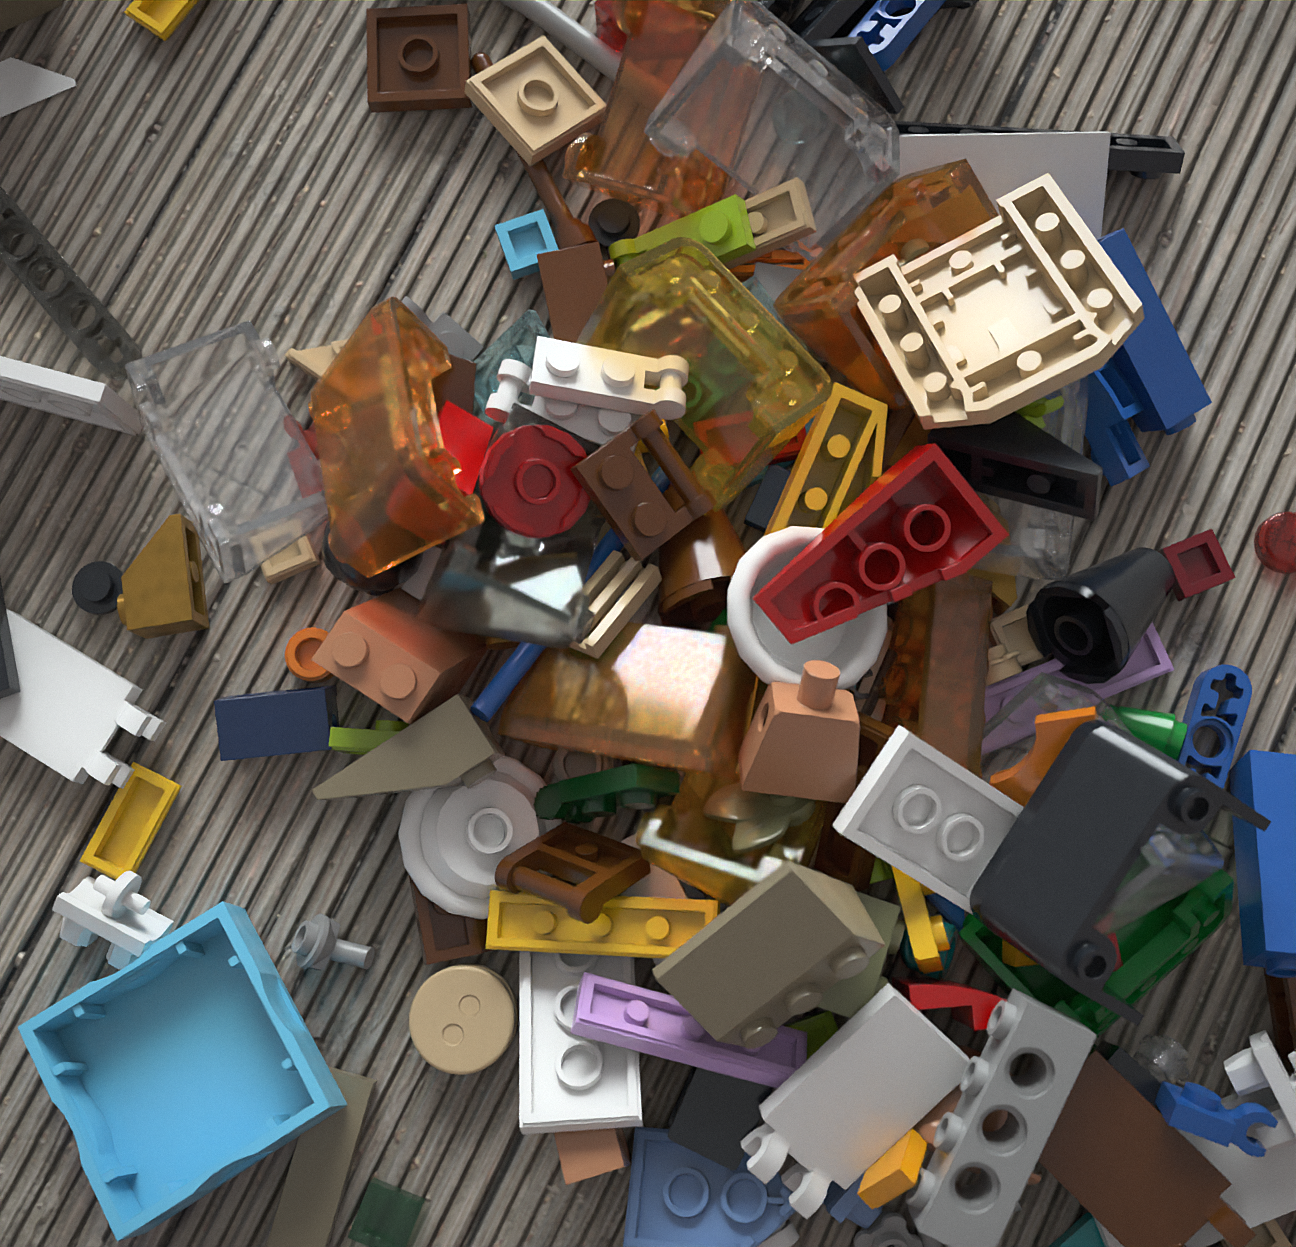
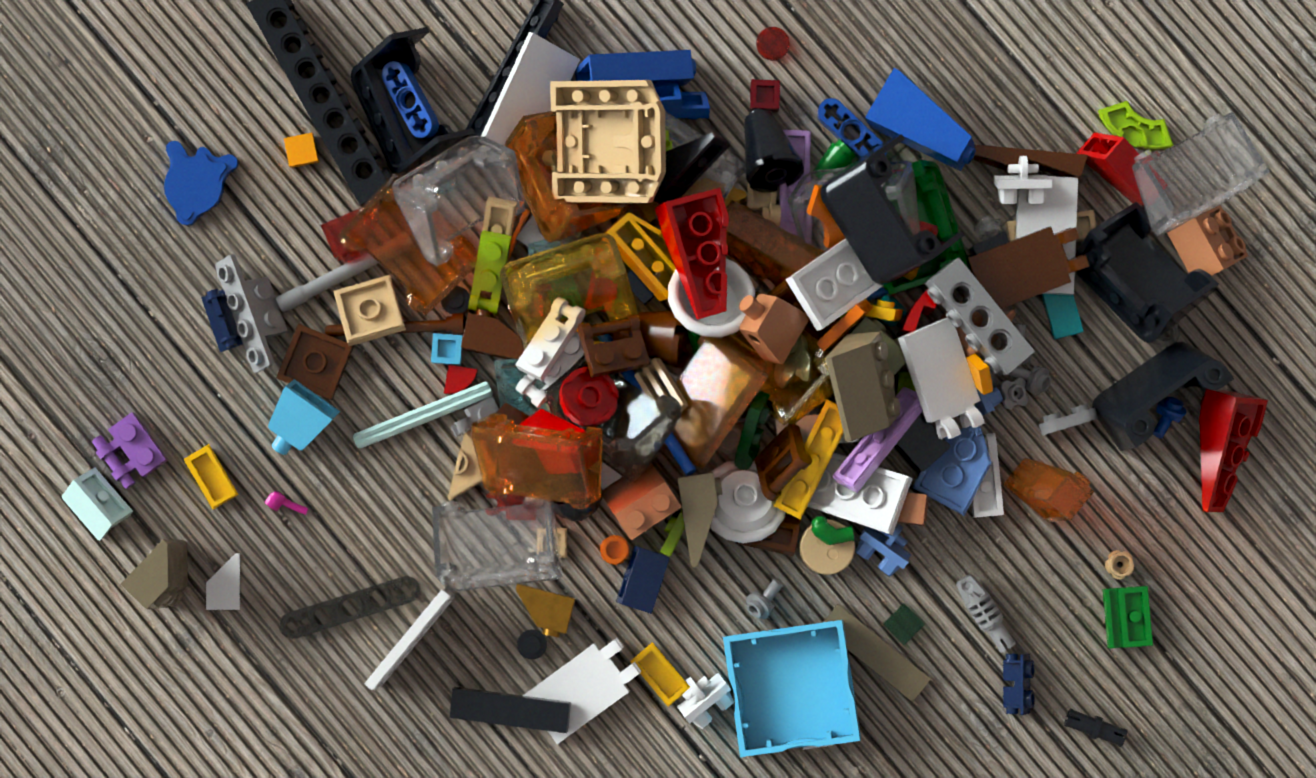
camera: 75 degrees left, 5 degrees up
(177, 97) = (277, 499): none -> dark pink hand
(318, 64) = (299, 417): none -> medium azure torso
(406, 255) = (422, 415): none -> light aqua axle
(481, 1014) = (829, 534): none -> green arm
(489, 285) = (459, 378): none -> red tile
(501, 1145) = (887, 545): none -> medium blue hips
(867, 874) = (844, 325): none -> orange tile
(1203, 1115) = (1015, 224): blue plate -> none

